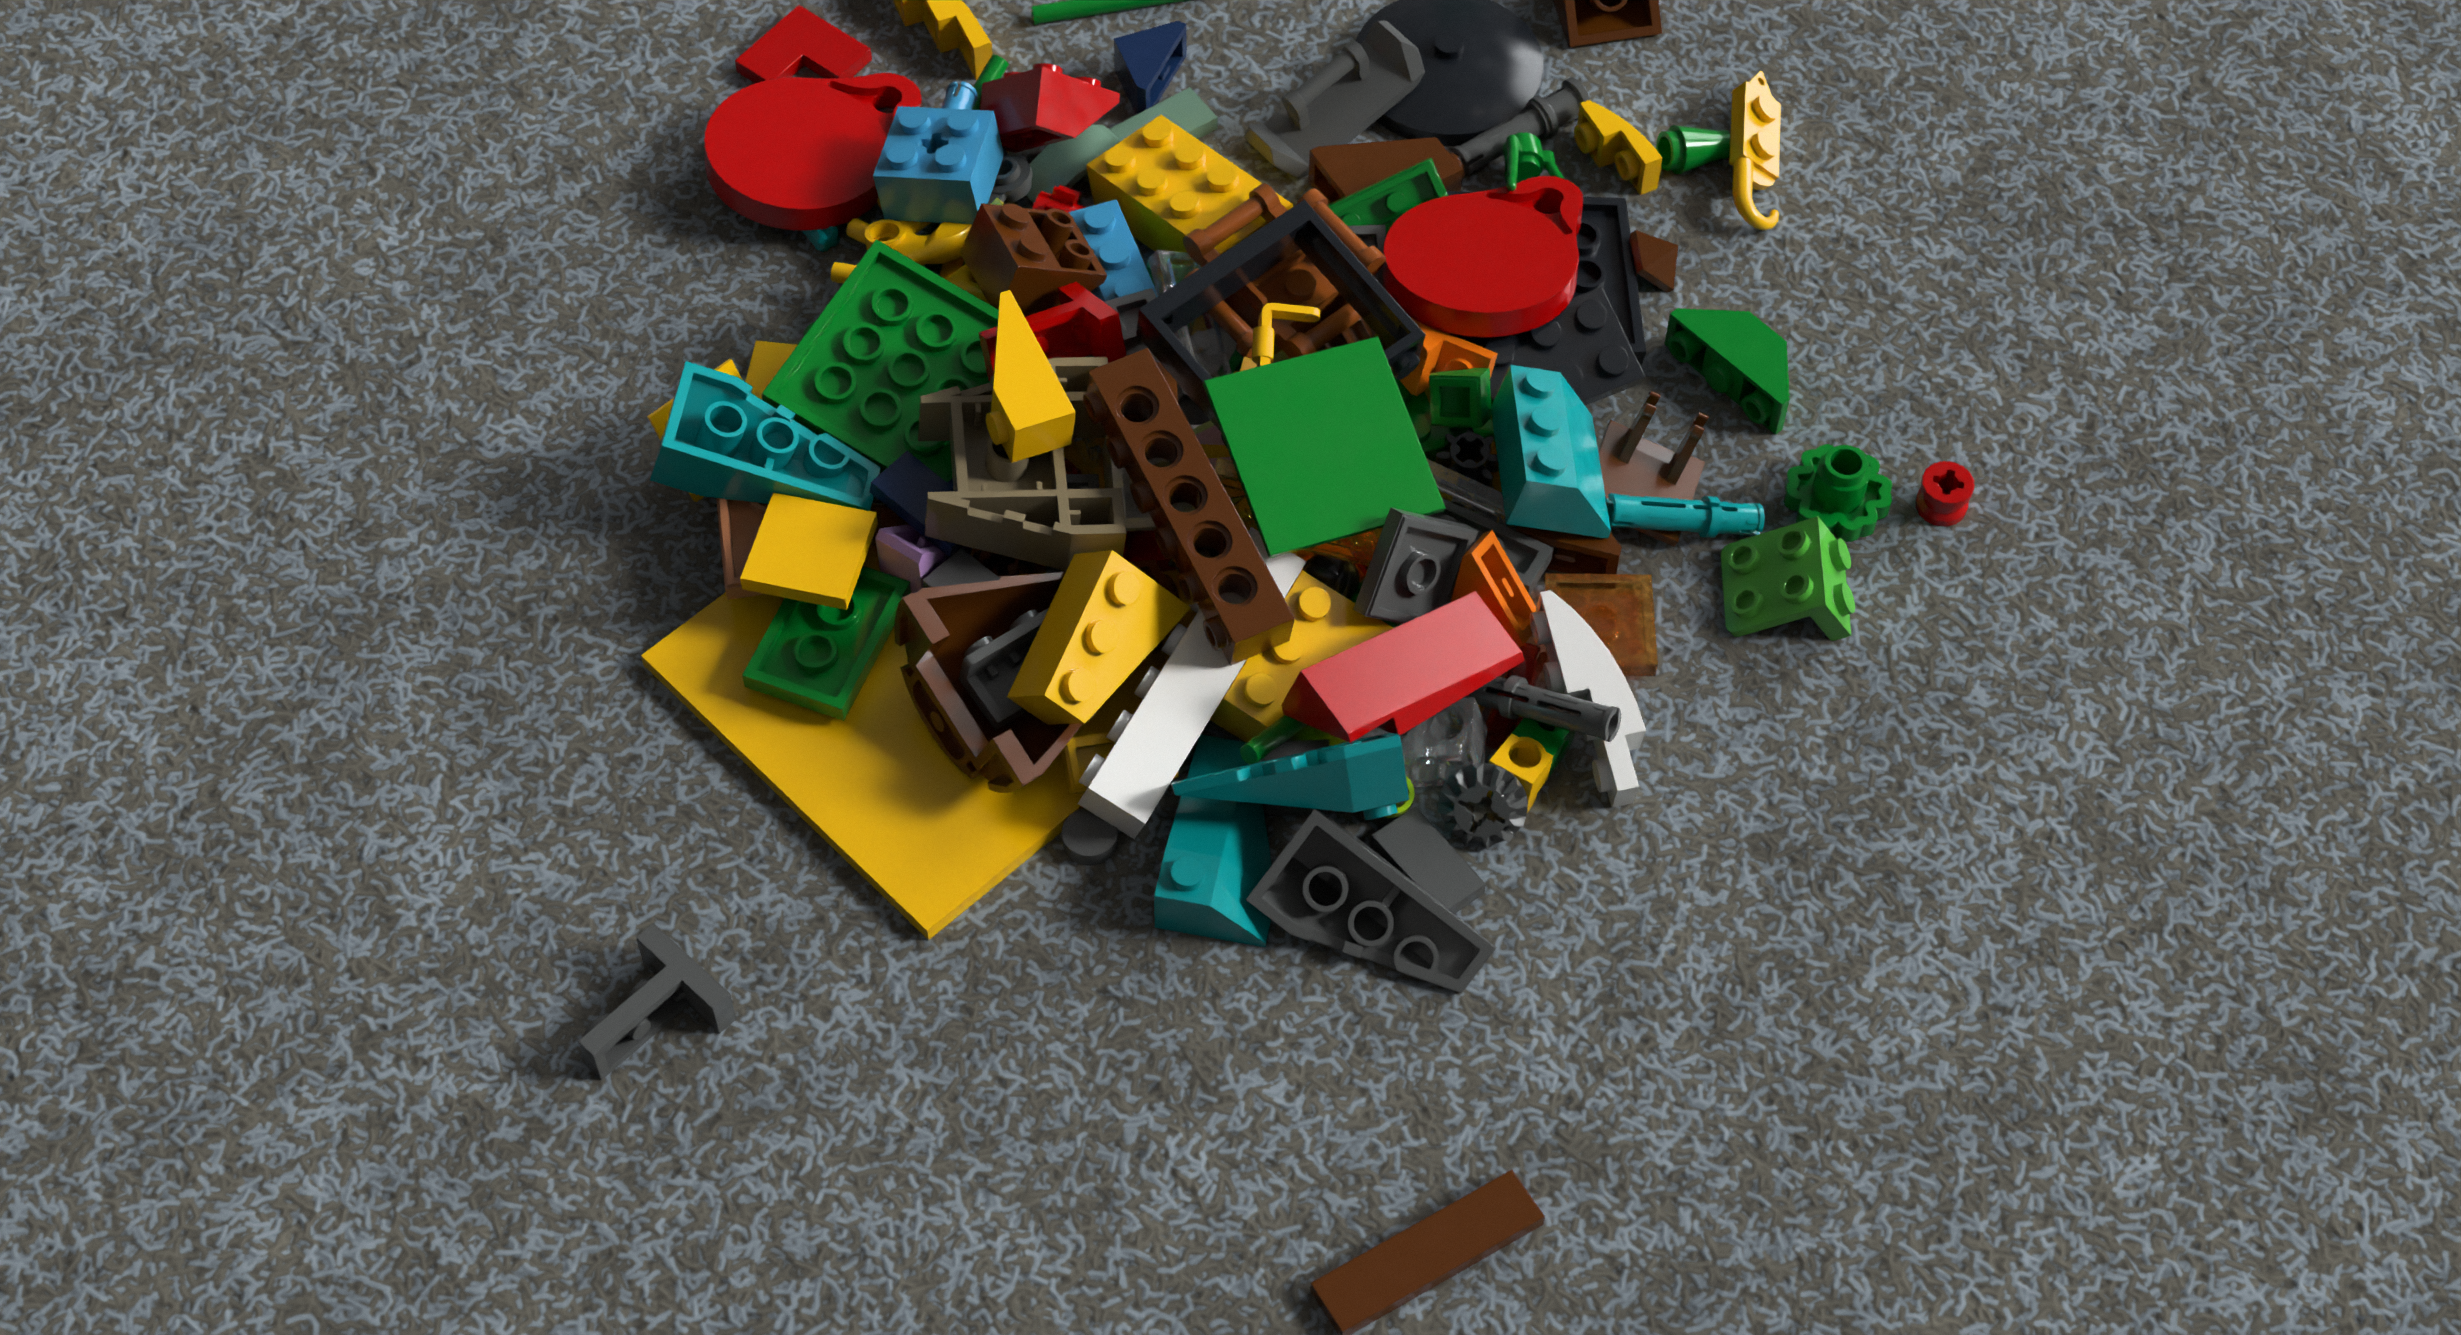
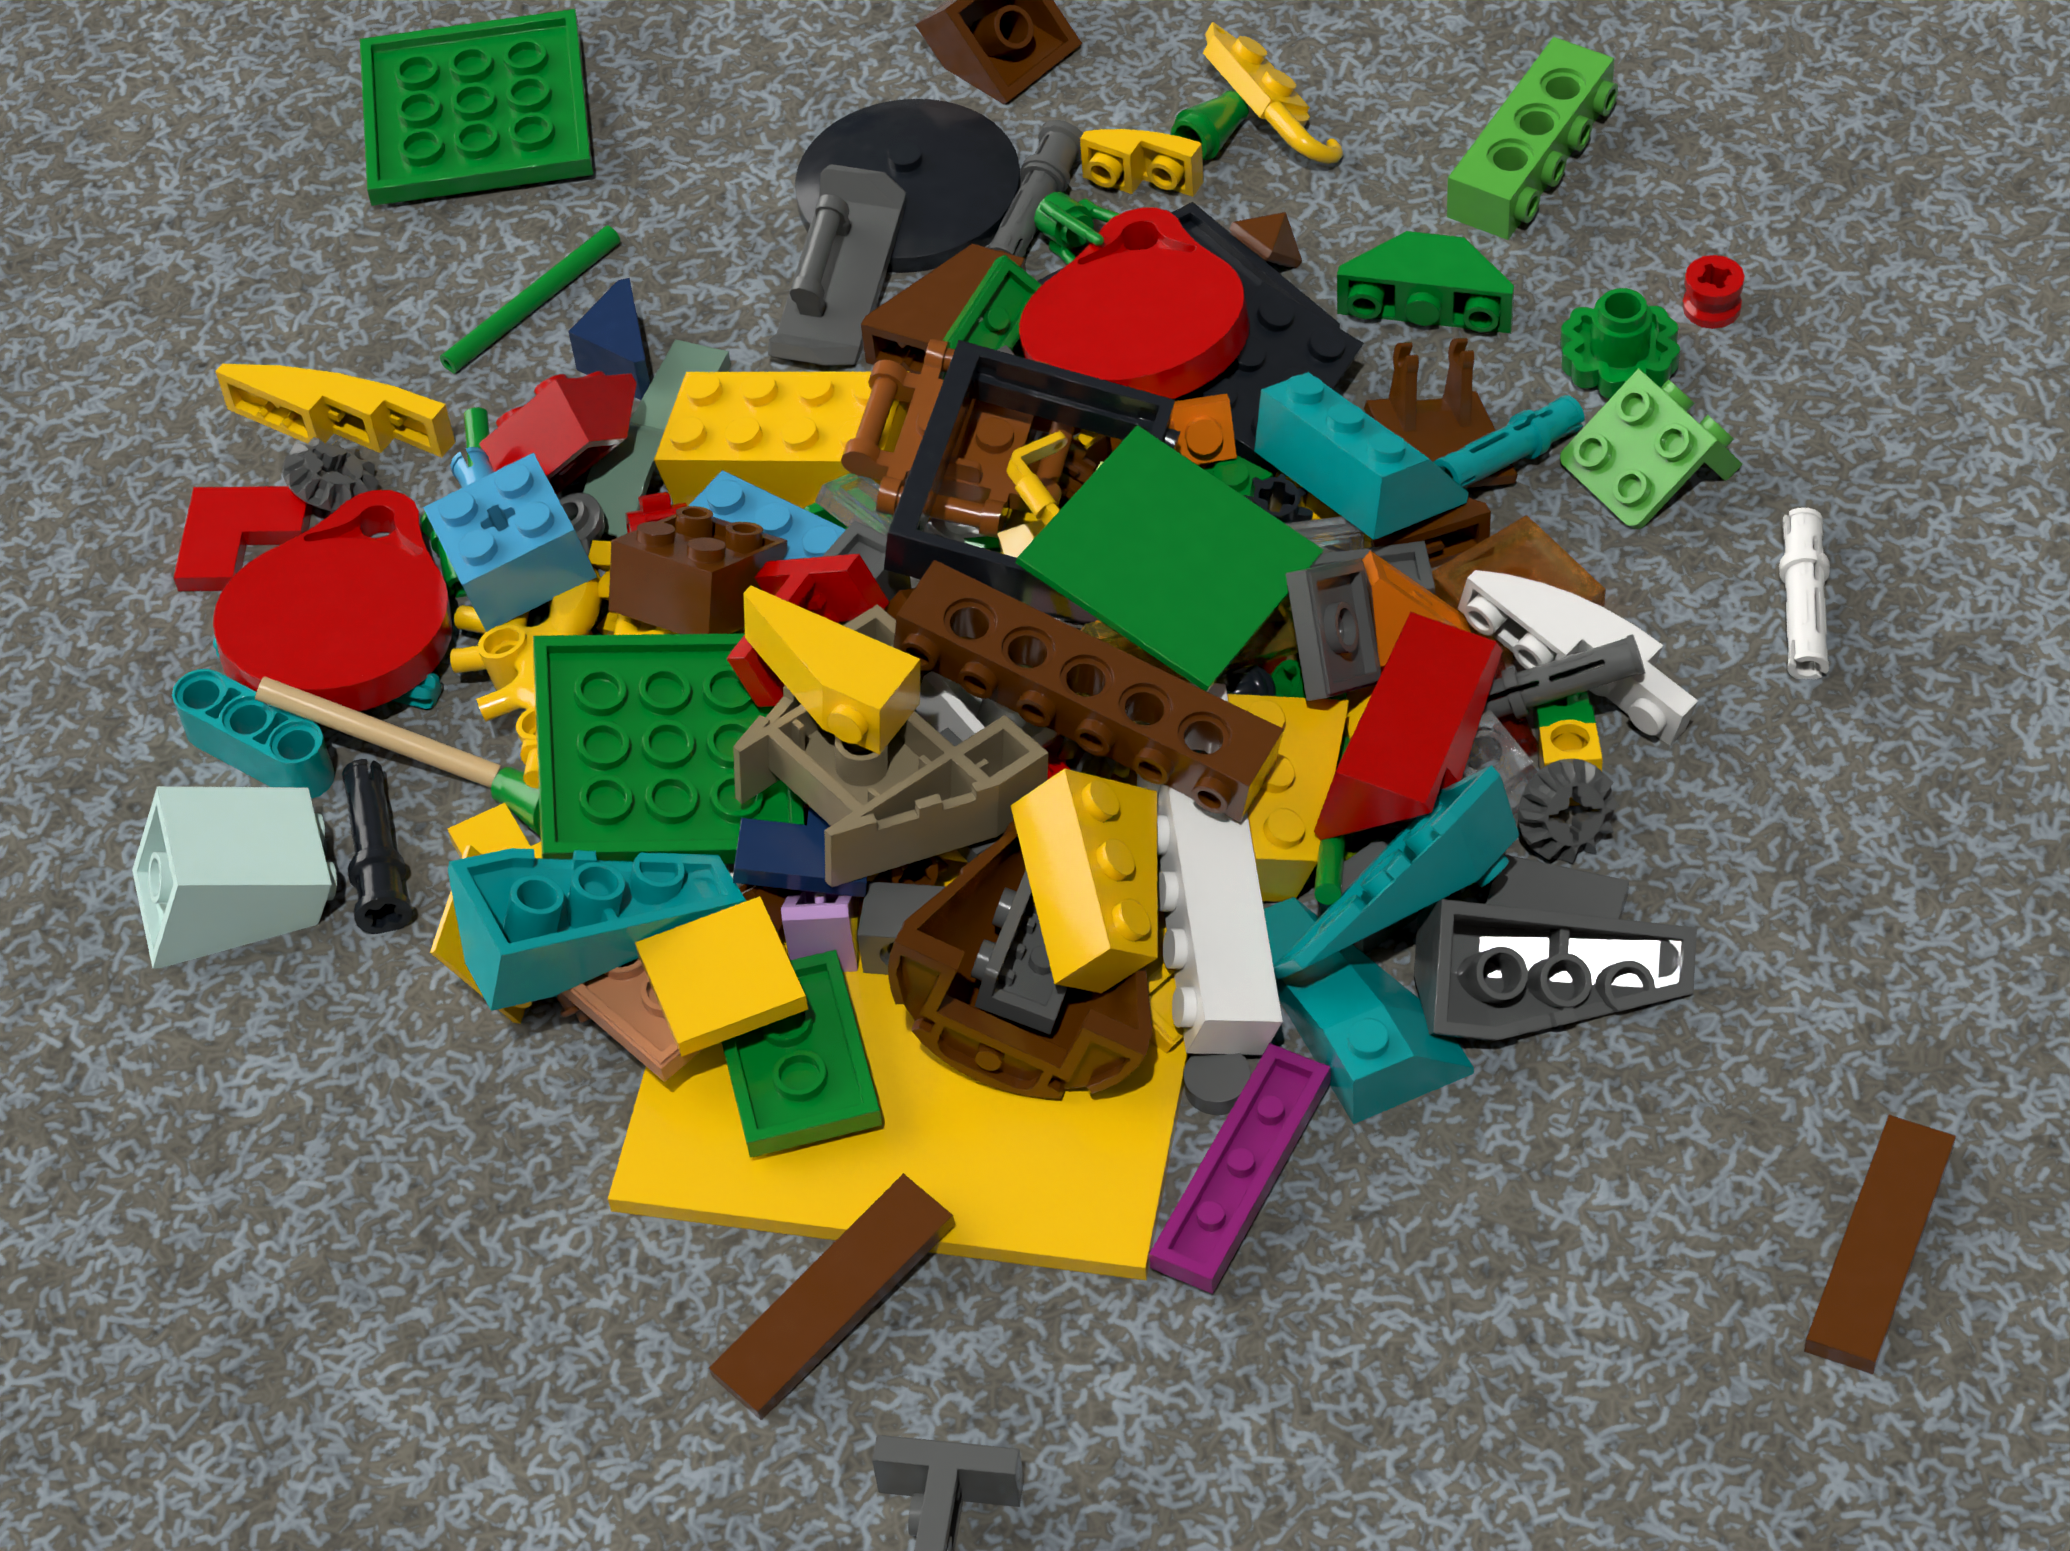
camera: 30 degrees left, 5 degrees down
(600, 282) = (229, 869): none -> light aqua slope
(691, 199) = (252, 735): none -> teal beam
(691, 338) = (376, 866): none -> black pin
(718, 813) = (832, 1296): none -> reddish brown tile
(758, 243) = (377, 732): none -> tan bar
(874, 58) = (351, 475): none -> dark grey gear
(1047, 905) = (1240, 1168): none -> magenta plate
(1460, 398) = (1227, 451): green slope -> none
(1817, 743) = (1804, 572): none -> white pin
(1915, 296) = (1531, 138): none -> bright green brick

